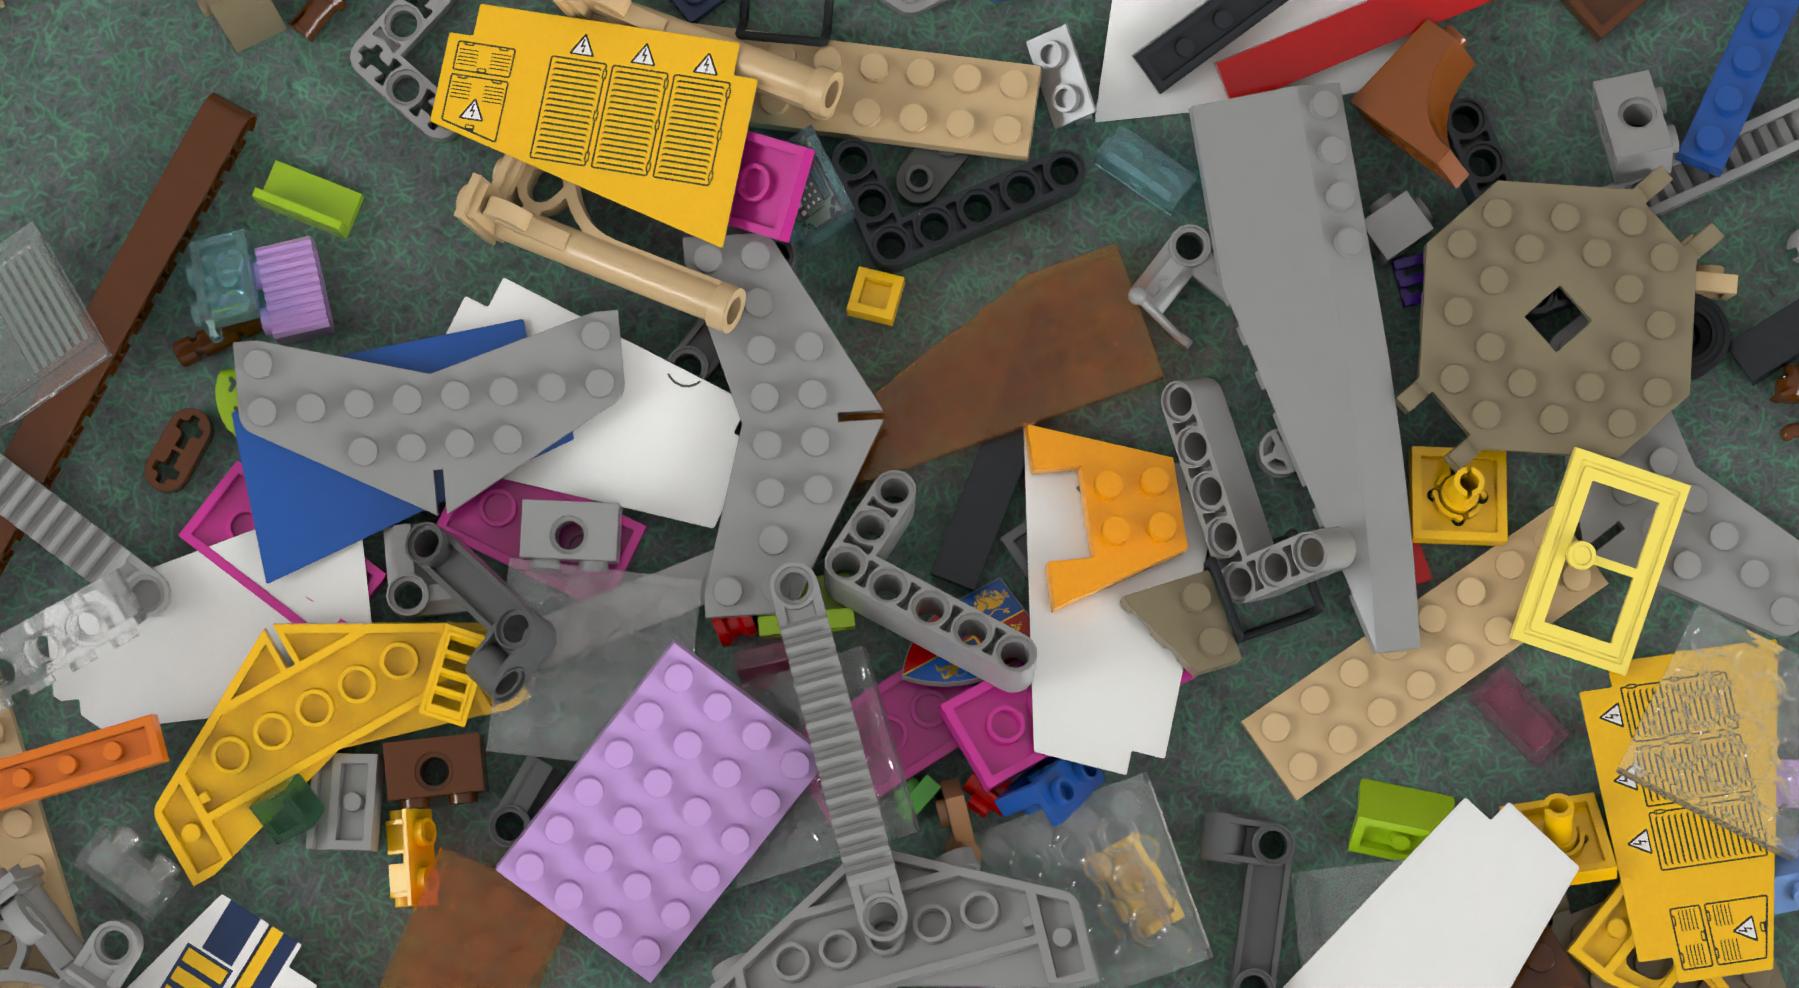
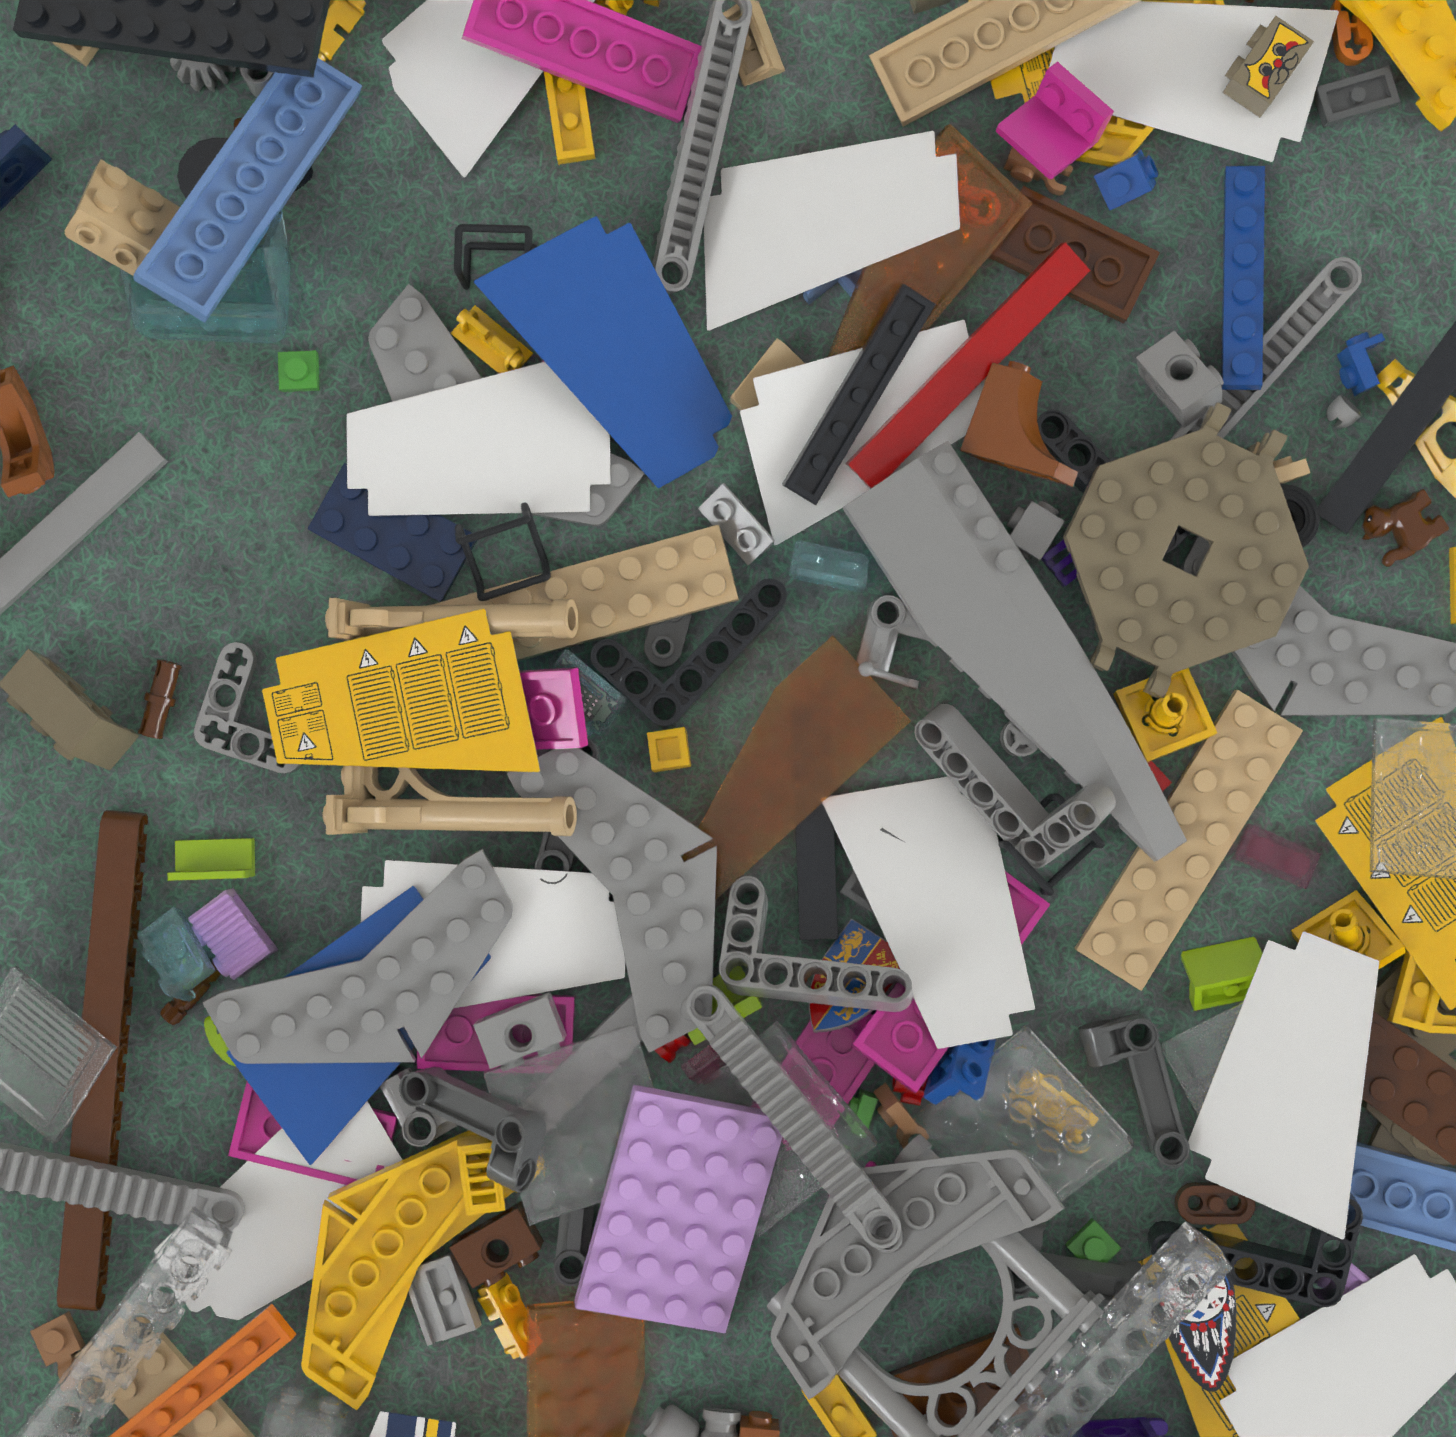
camera: 20 degrees left, 5 degrees up
(169, 445) = (192, 1088): reddish brown beam -> none
(288, 809) = (401, 1325): clear green slope -> none
(1127, 509) = (926, 831): light orange wing -> none
(1188, 621) = (1007, 897): dark tan wing -> none
(1581, 555) = (1257, 722): light yellow door -> none

